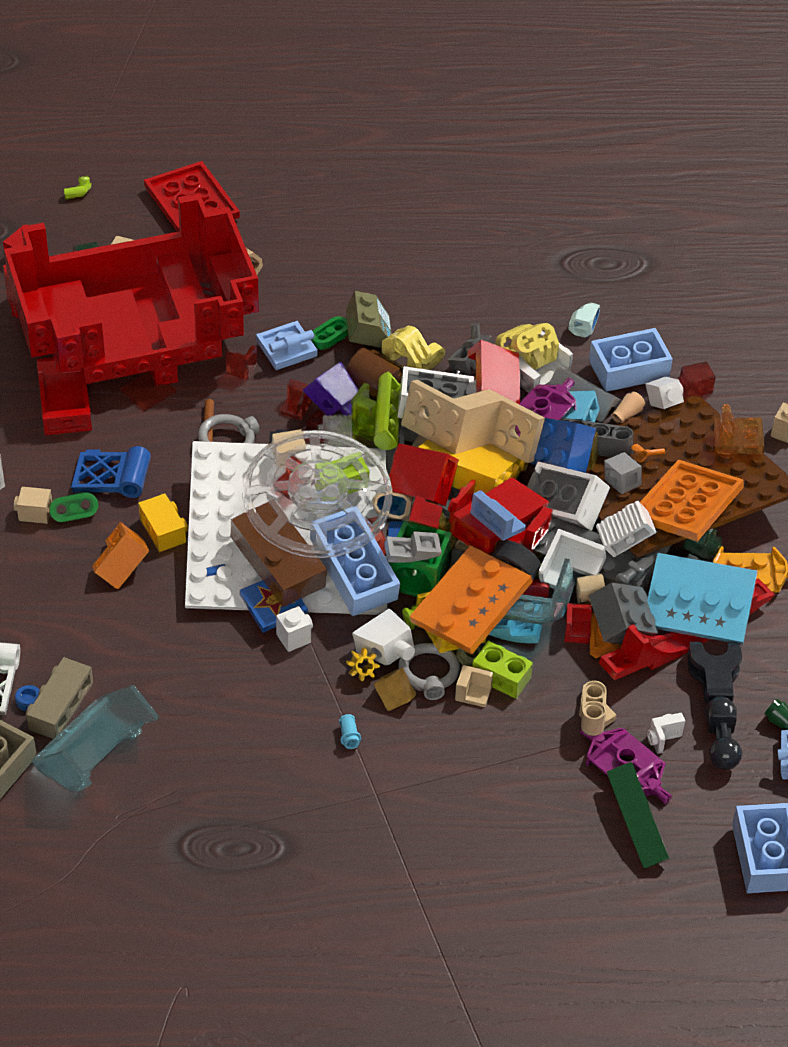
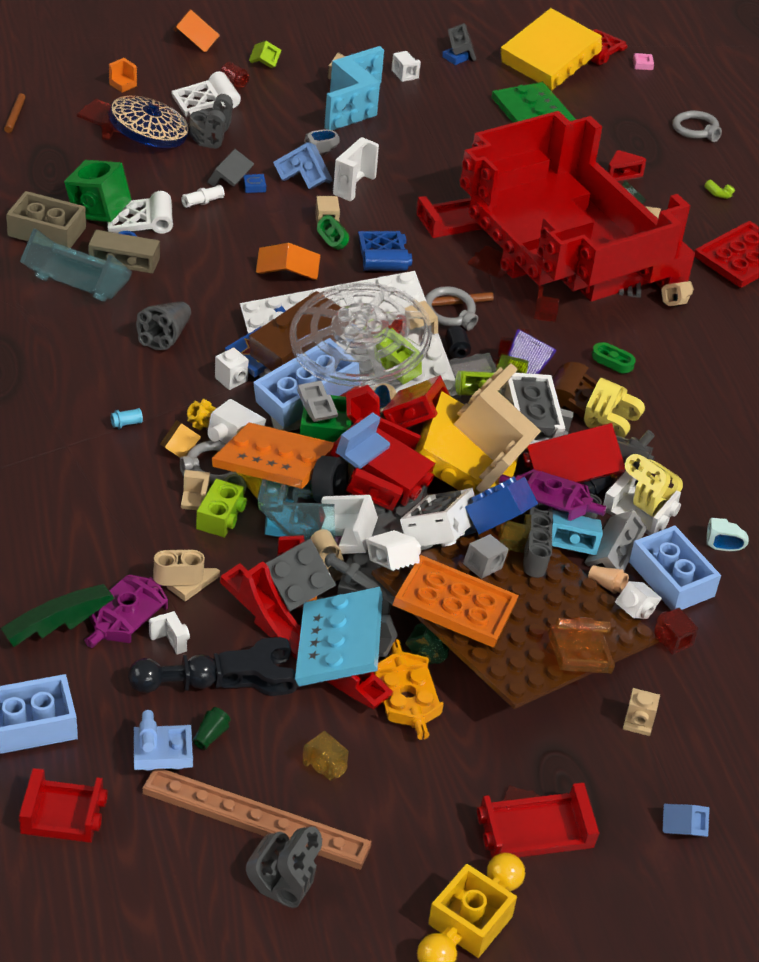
camera: 75 degrees right, 5 degrees down
(163, 522) = (331, 275): yellow brick -> none
(210, 673) = (162, 324): none -> dark grey cone
(287, 345) = (581, 330): light blue plate -> none
(367, 320) = (637, 372): olive slope -> none
(641, 454) = (528, 576): orange hand -> none

